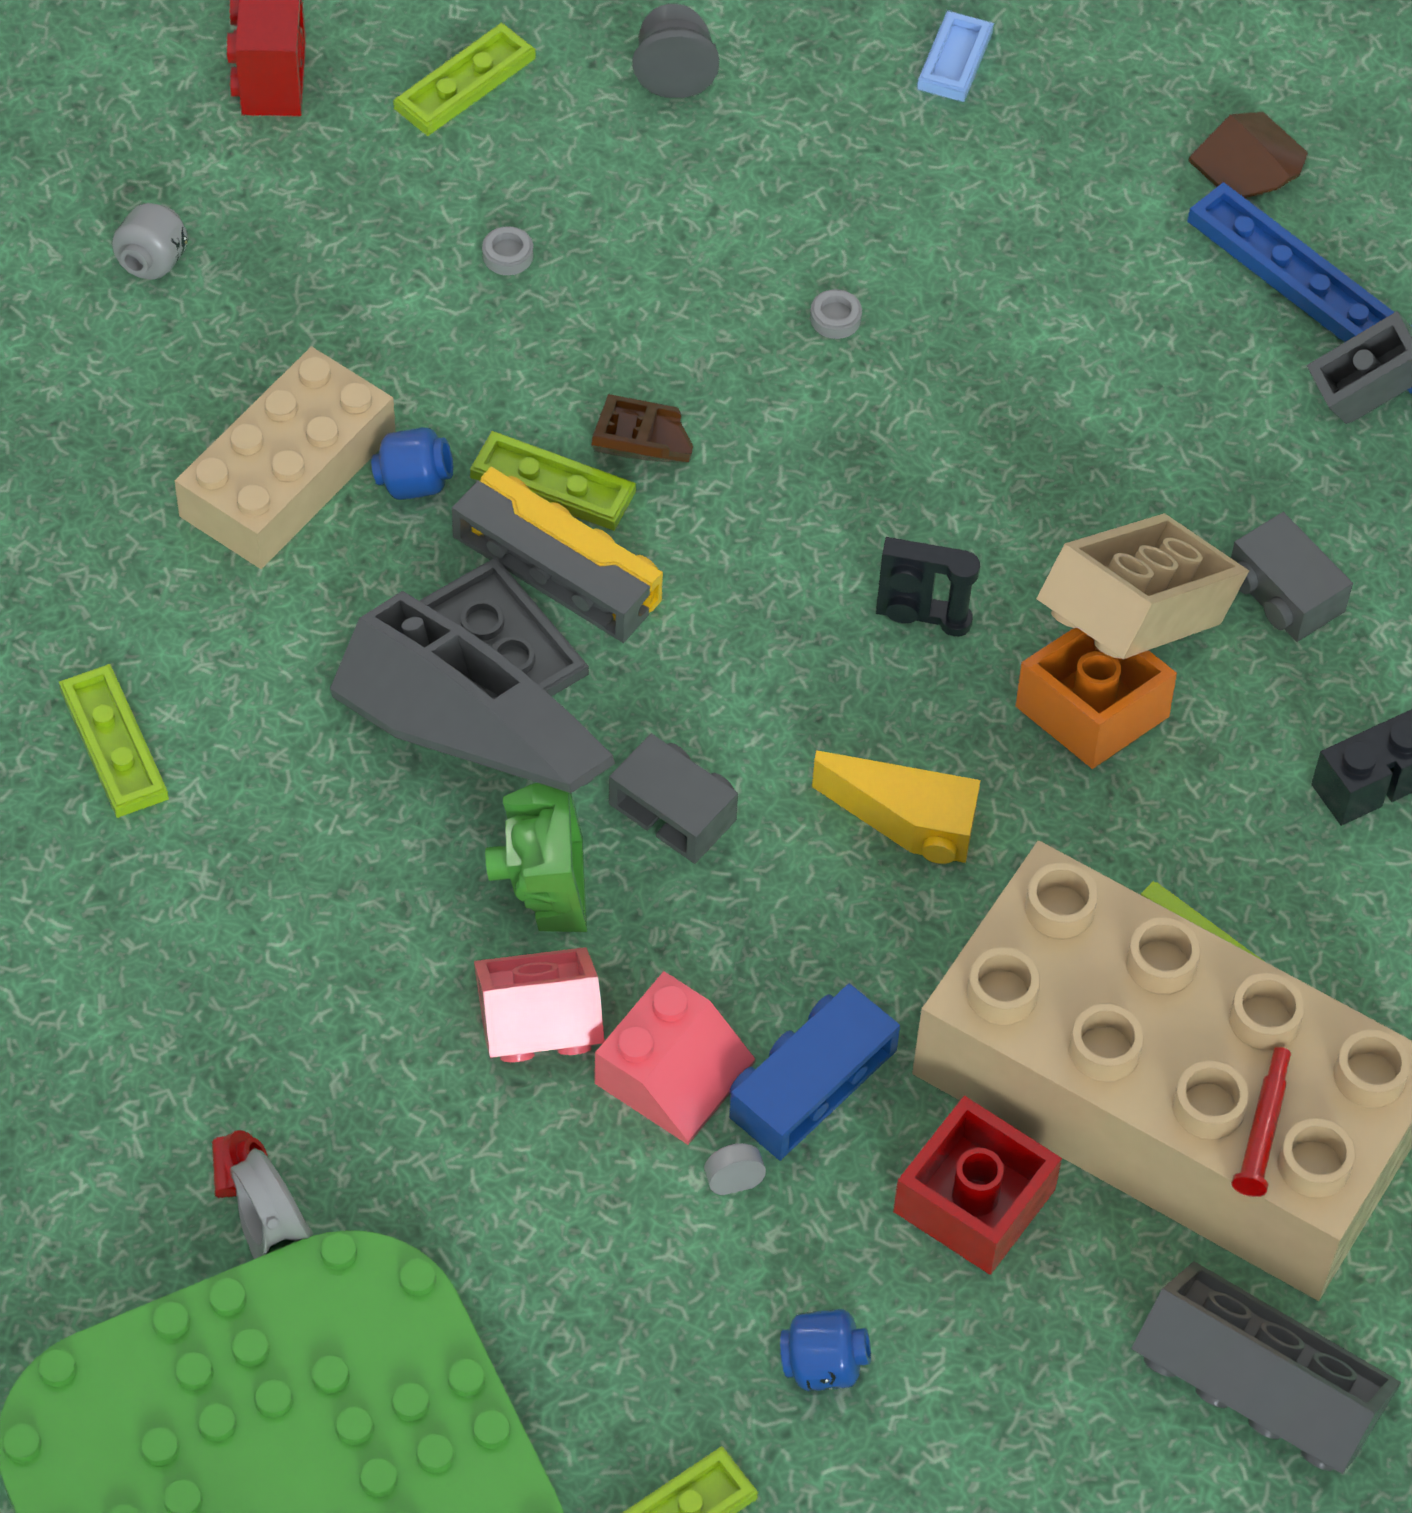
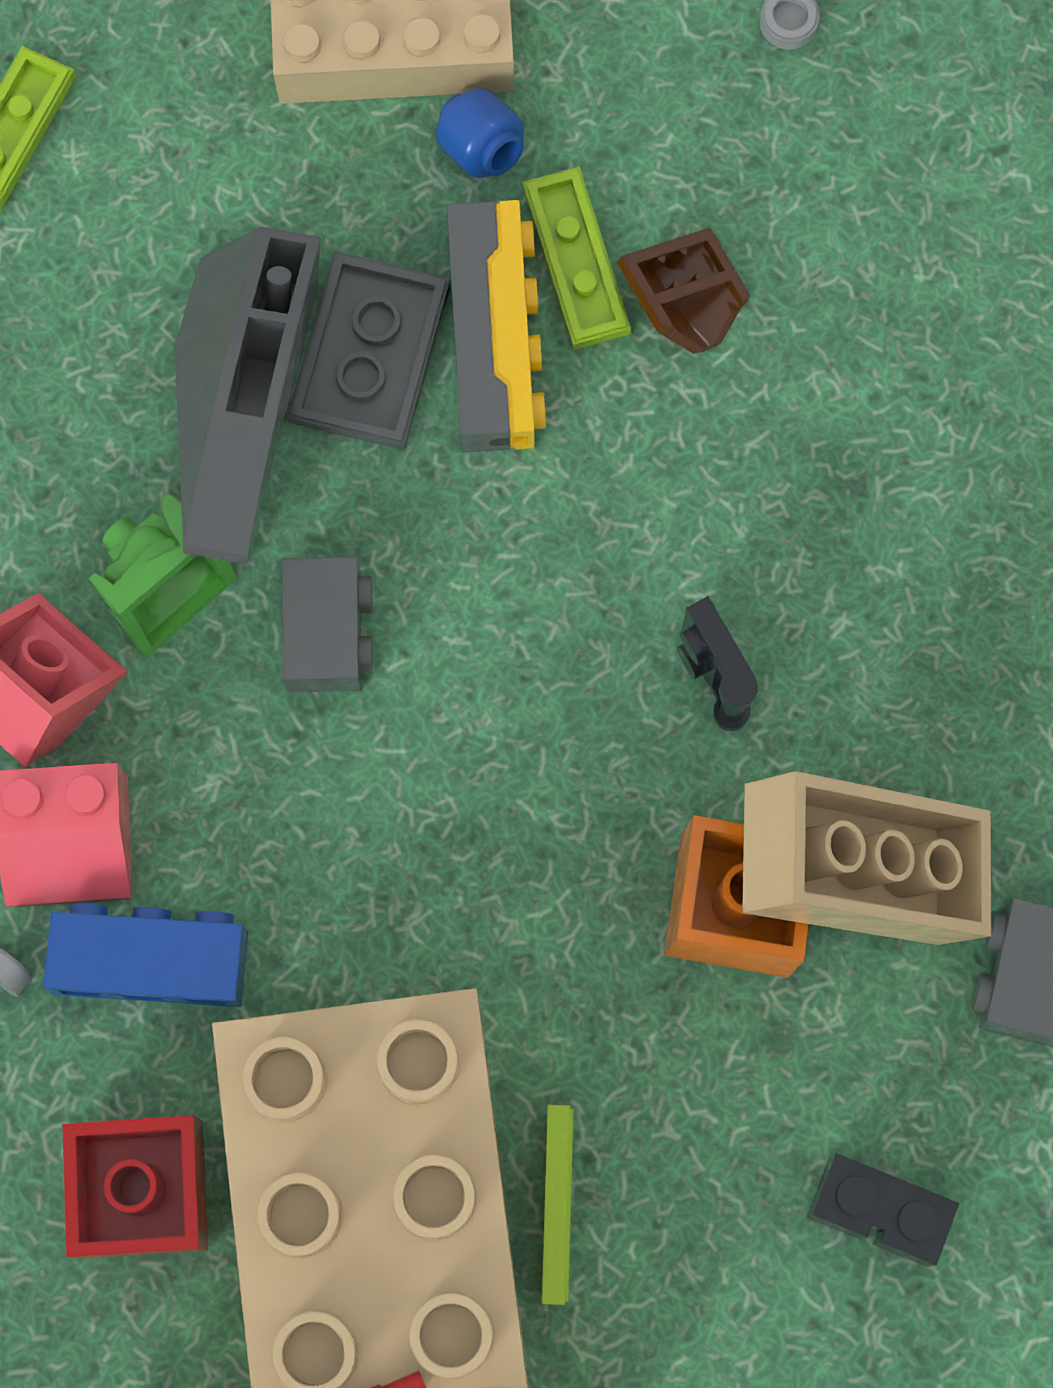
camera: 55 degrees right, 20 degrees up
(836, 314) = (977, 345): light grey tile -> none
(911, 806) = (487, 838): yellow slope -> none

